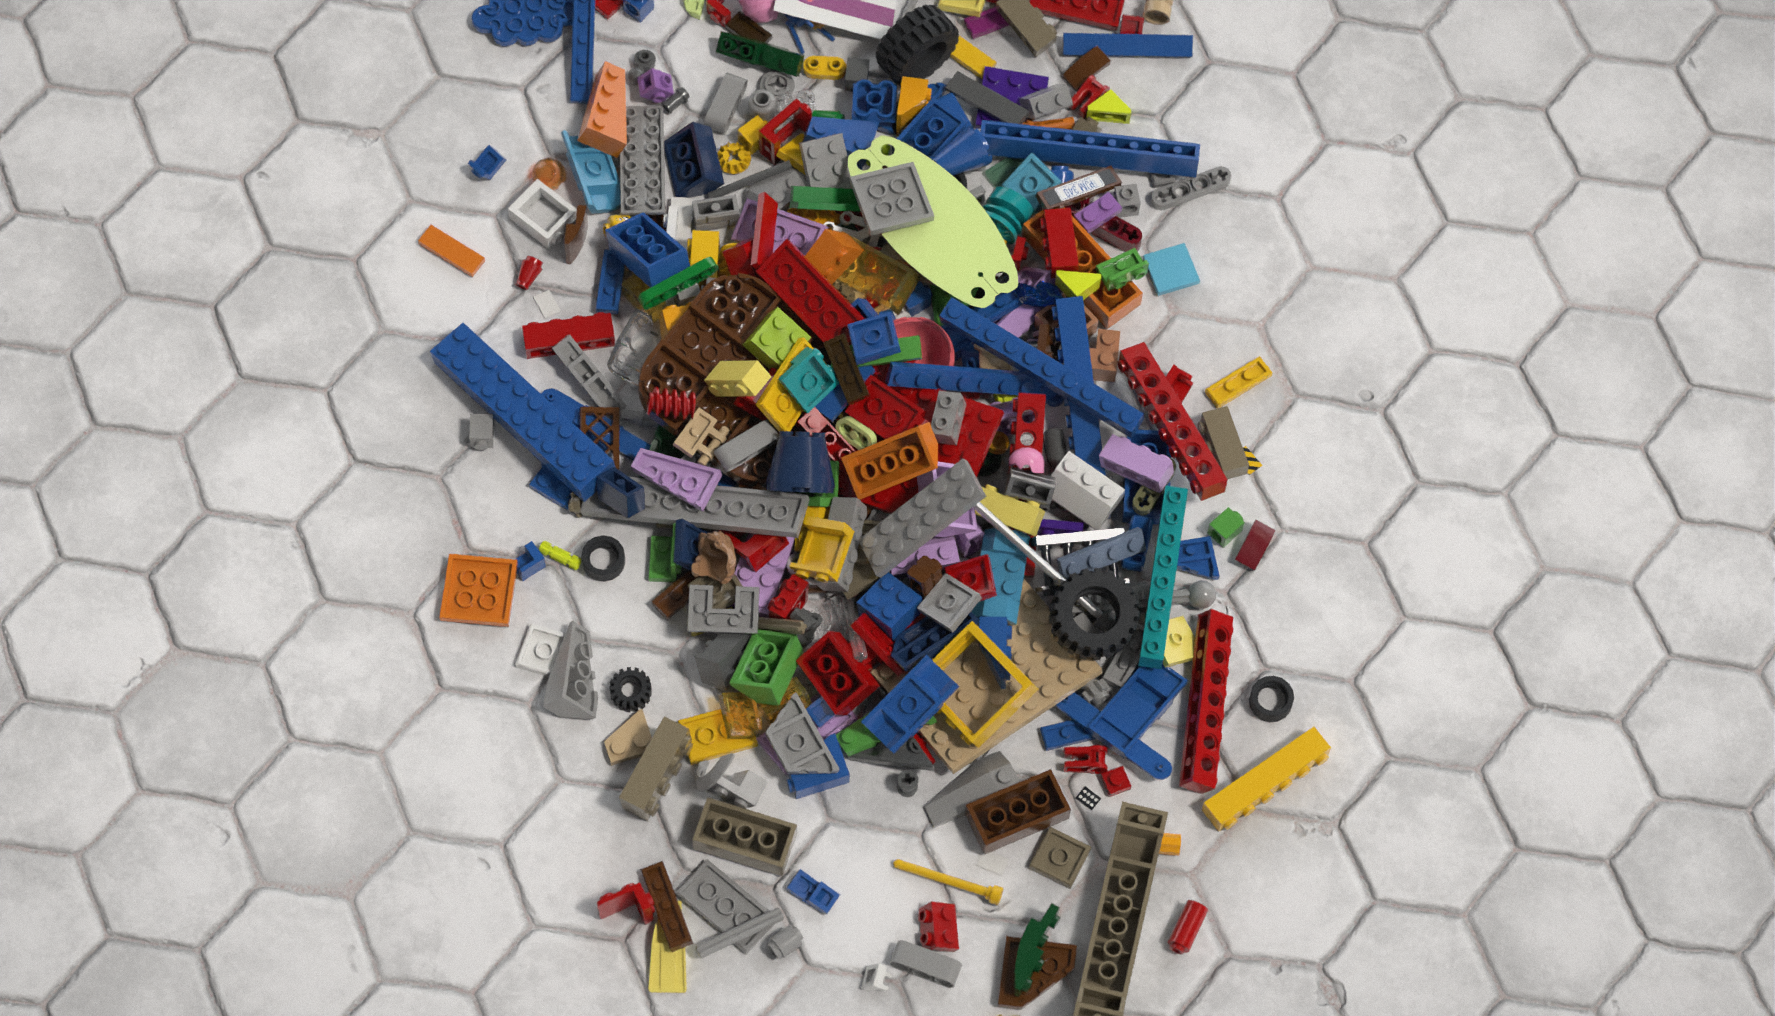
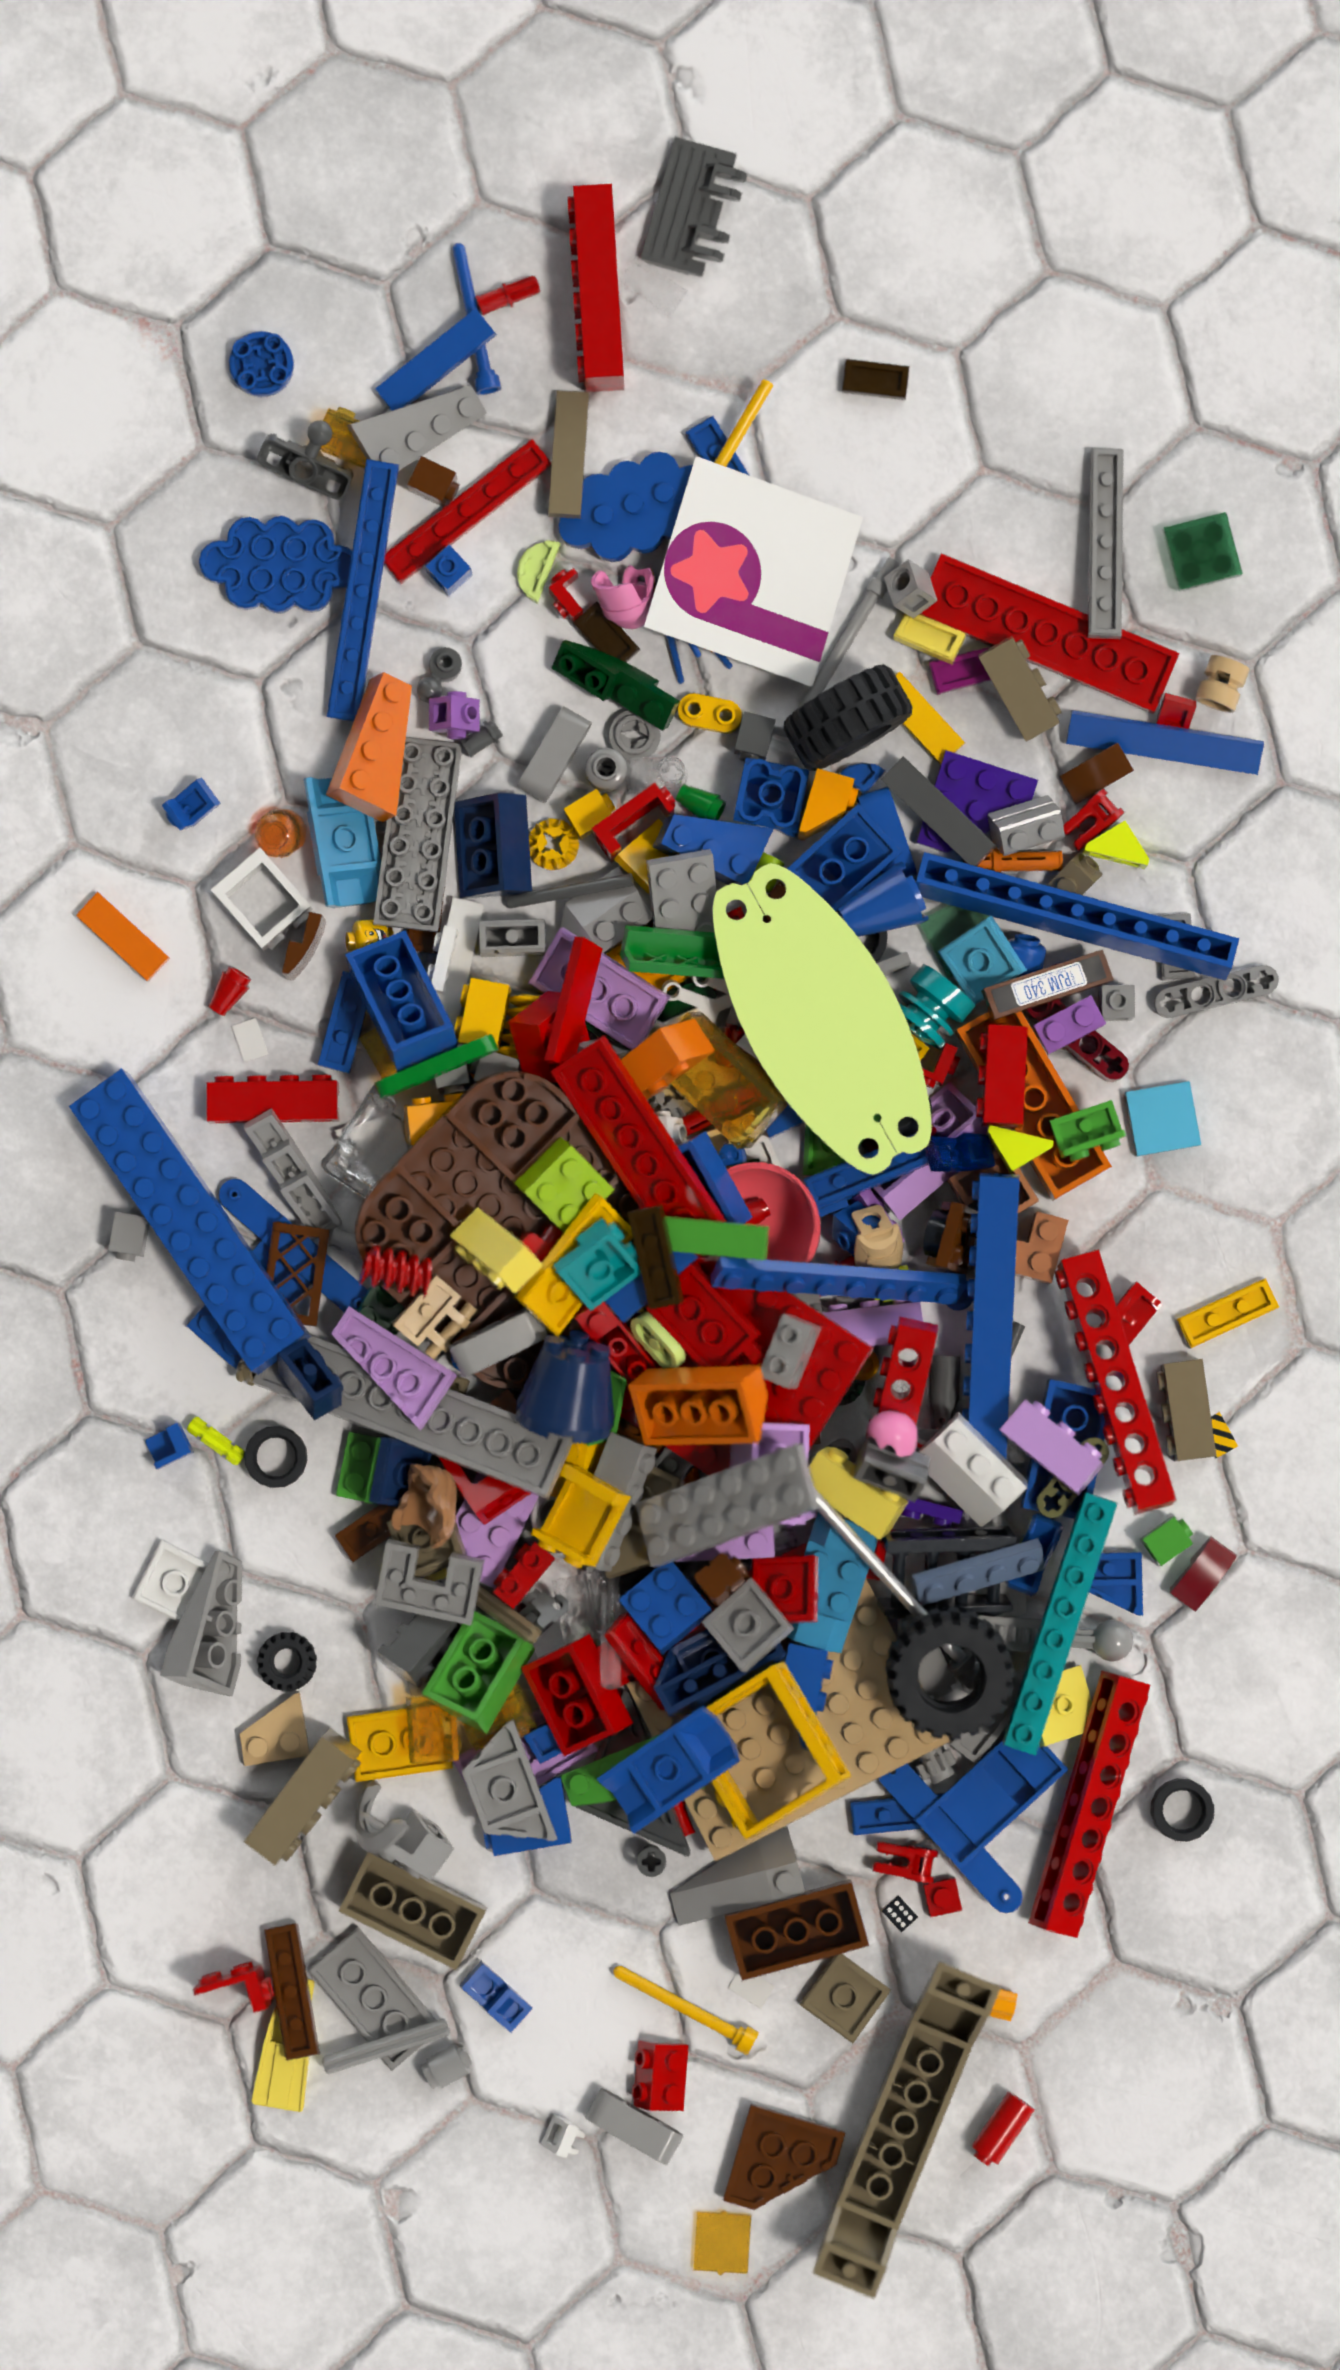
camera: 10 degrees right, 20 degrees up
(478, 590) = (94, 1480): orange plate -> none
(874, 338) = (702, 1218): blue tile -> none
(891, 198) = (767, 979): light grey plate -> none
(1029, 956) = (774, 2148): dark green slope -> none
(1041, 368) = (940, 1282): blue brick -> none
(1266, 779) = (1152, 1930): yellow brick -> none

